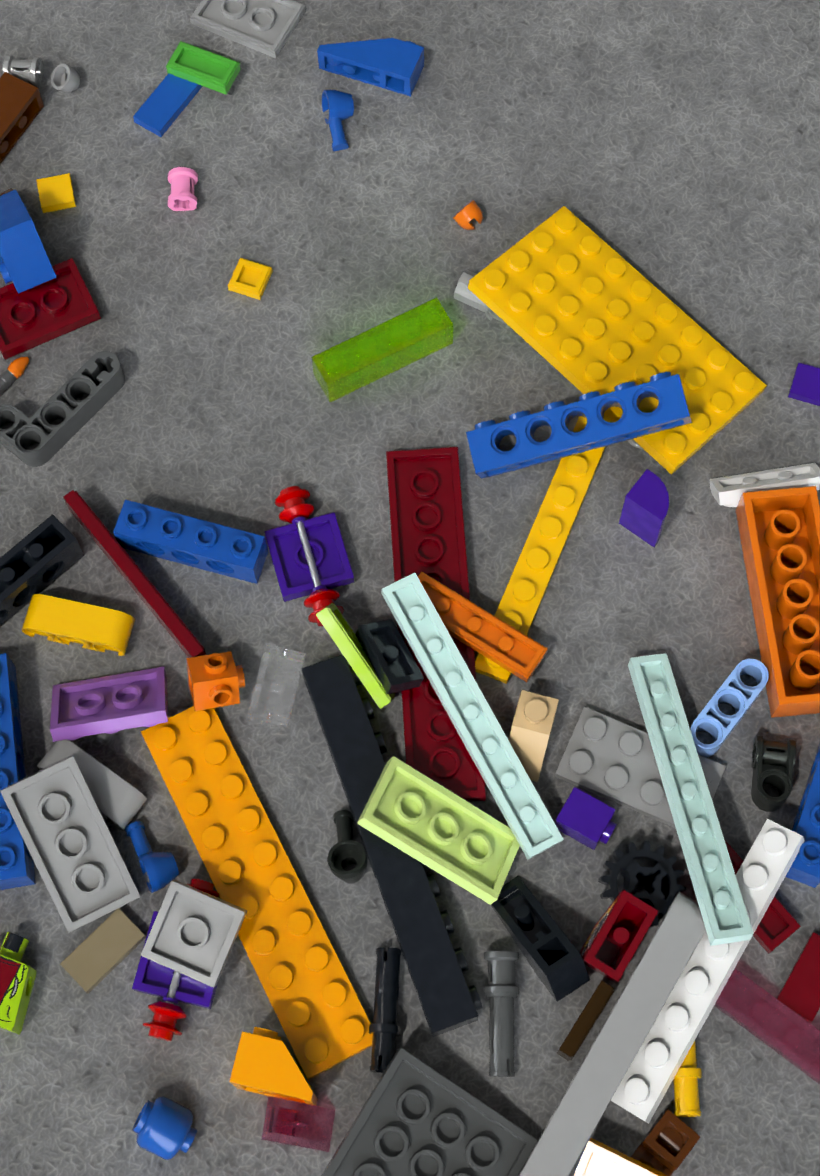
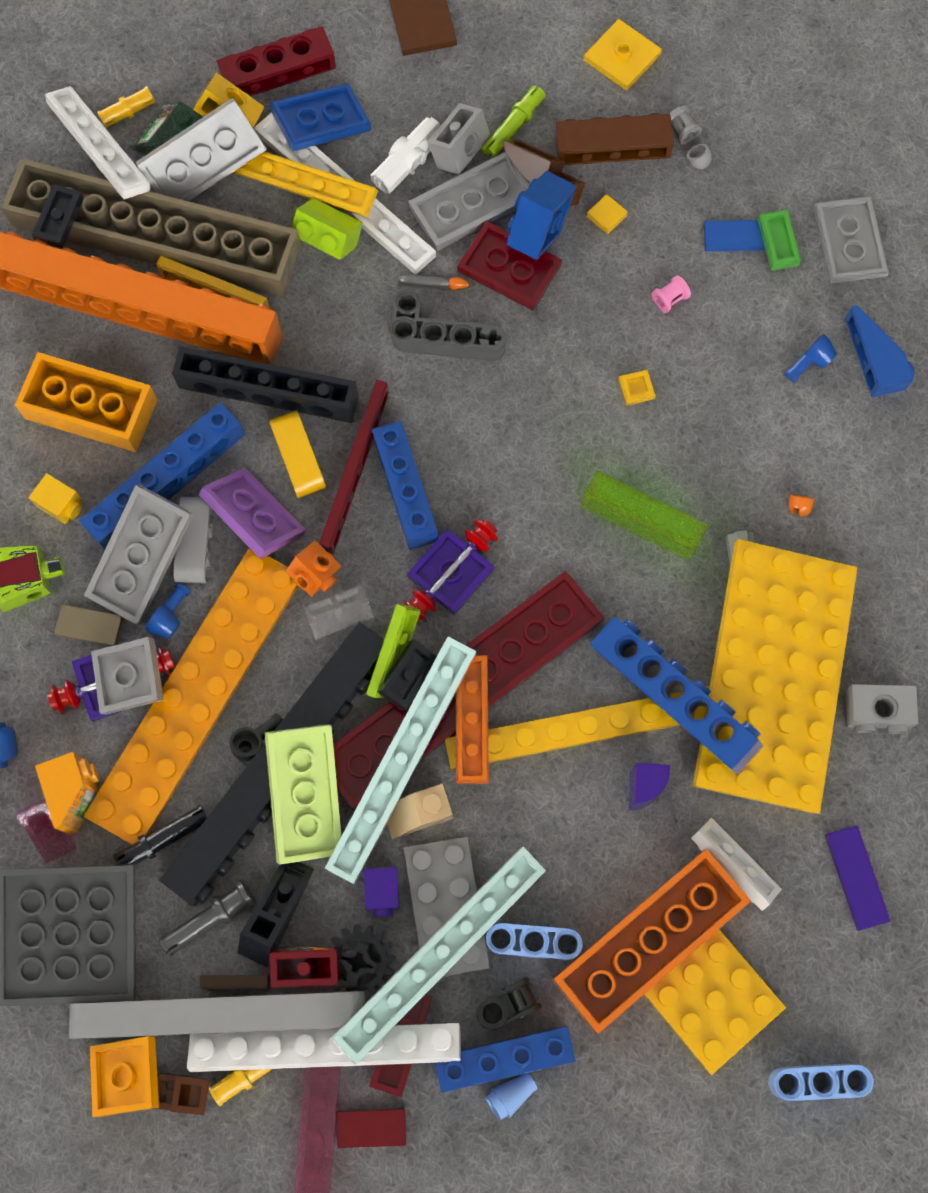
camera: 55 degrees right, 5 degrees up
(711, 256) = (897, 699): none -> light grey brick

